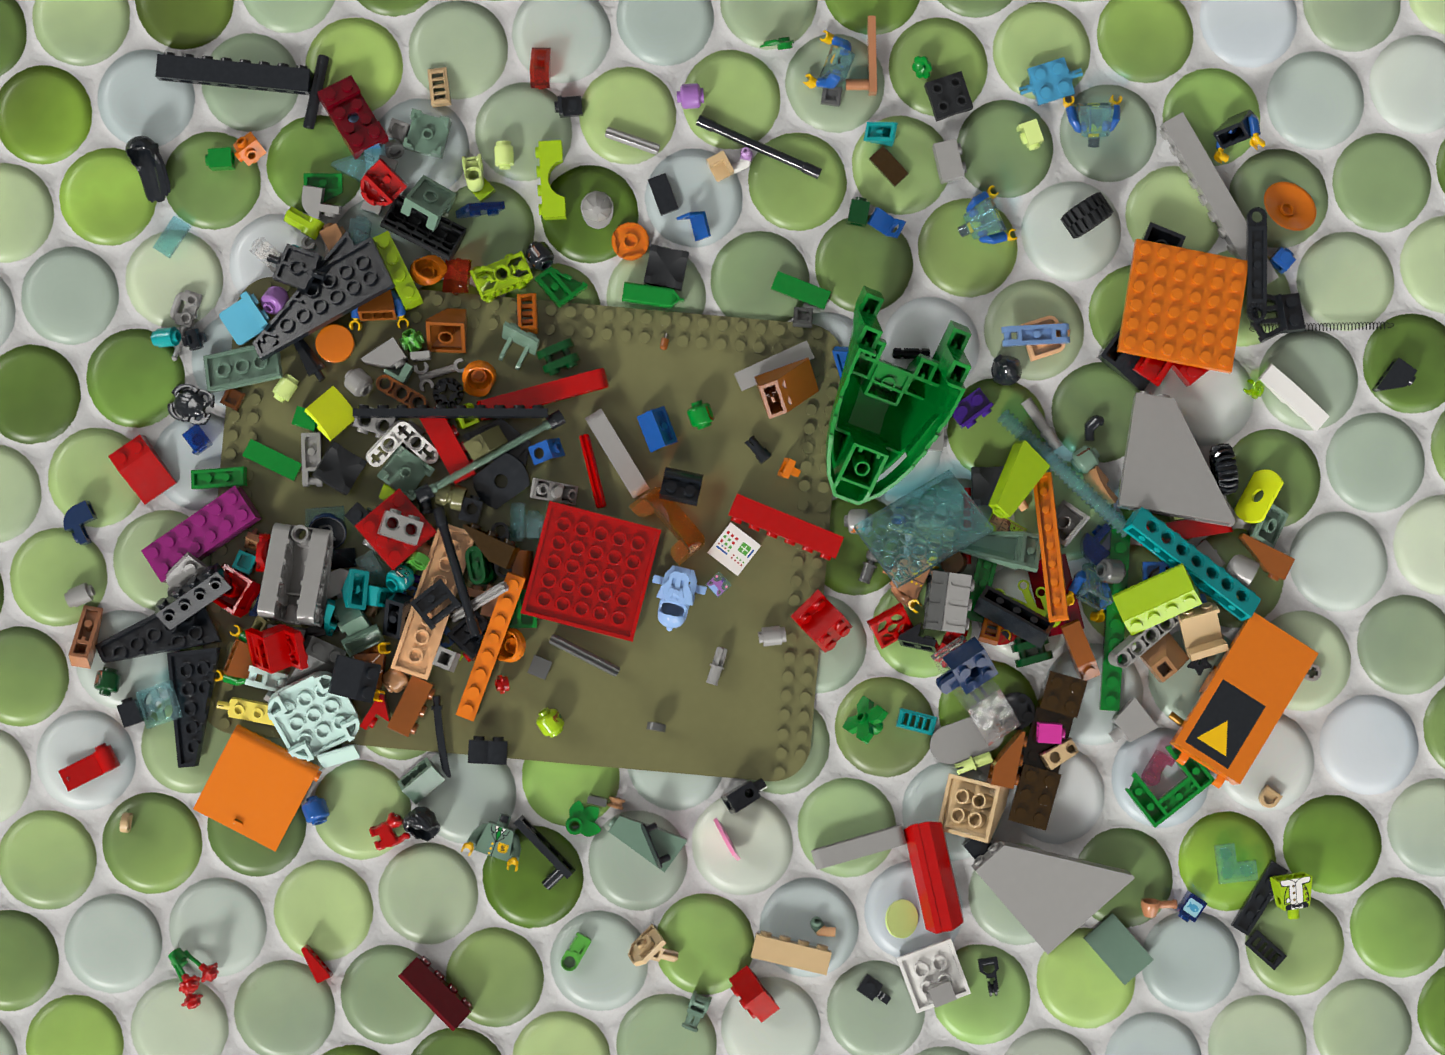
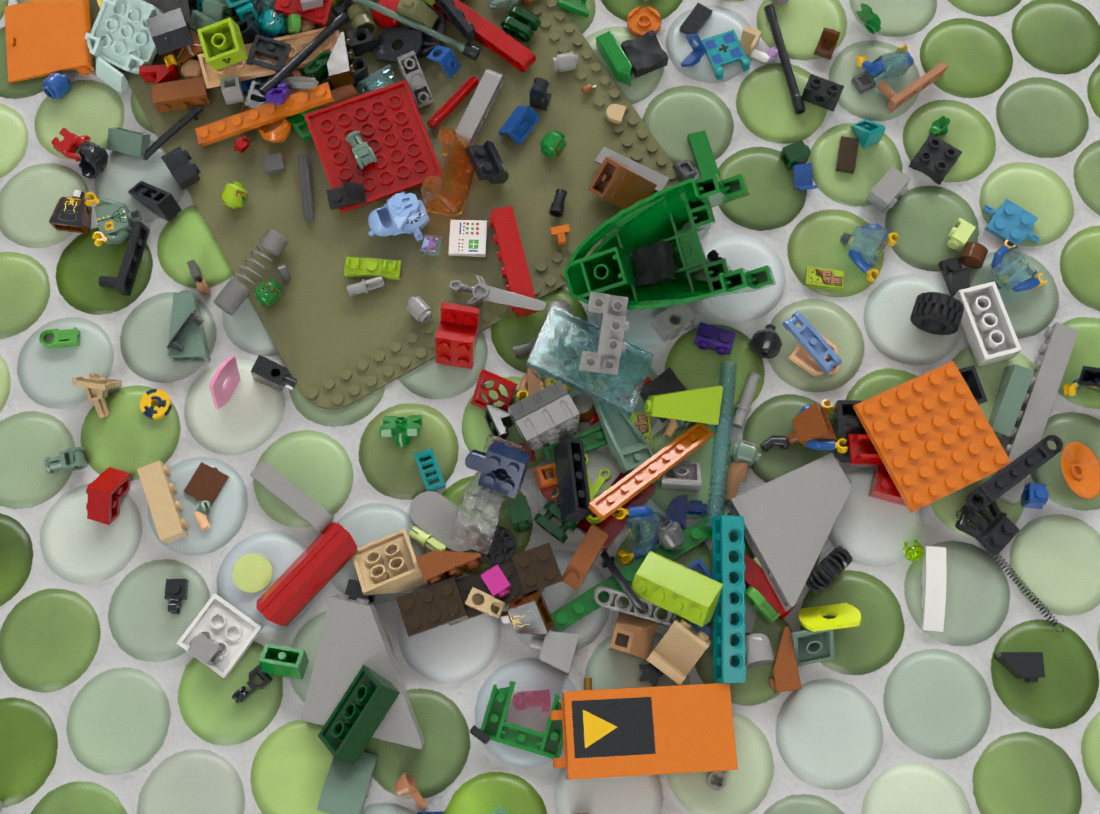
camera: 60 degrees right, 15 degrees down
(406, 641) = (222, 44): none -> lime brick
(462, 871) = (72, 214): none -> torso
(490, 624) = (278, 95): none -> dark purple plate
(499, 793) = (156, 200): none -> black slope
(585, 817) = (175, 275): green plate -> none
(594, 588) = (362, 152): none -> sand green connector
(624, 627) = (346, 196): none -> black slope
(626, 344) = (565, 61): none -> light grey brick
(645, 392) = (538, 94): none -> black leg
(647, 779) = (235, 292): none -> light grey piece
(666, 751) = (268, 292): none -> green head
(695, 916) = (159, 411): none -> yellow piece
(703, 648) = (372, 268): none -> lime plate
(707, 337) = (615, 113): none -> tan tile
(711, 193) = (724, 50): none -> teal flag
(773, 99) = (827, 43): none -> reddish brown bracket
(795, 909) = (206, 483): none -> reddish brown piece
(800, 570) = (483, 292): none -> light grey sword
(818, 142) = (822, 92): none -> black brick
(881, 416) = (654, 264): none -> black brick
(925, 503) = (611, 333): none -> light grey bracket
(984, 276) = (824, 278): none -> tile
(992, 938) = (283, 661): none -> green brick
(1009, 676) = (520, 514): none -> dark green brick
(1057, 138) = (973, 255): none -> reddish brown piece
(1061, 167) = (954, 275): none -> black slope
(1078, 908) = (358, 715): none -> dark green slope
(1092, 725) = (528, 614): none -> torso
(1093, 632) = (609, 563): none -> black sword
(1106, 390) = (814, 428): none -> dark orange torso
(1122, 180) = (987, 324): none -> white brick
(1157, 826) = (480, 734): none -> black tile
(1195, 215) = (1009, 399): none -> sand green slope
(1211, 540) = (760, 605): none -> bright green piece

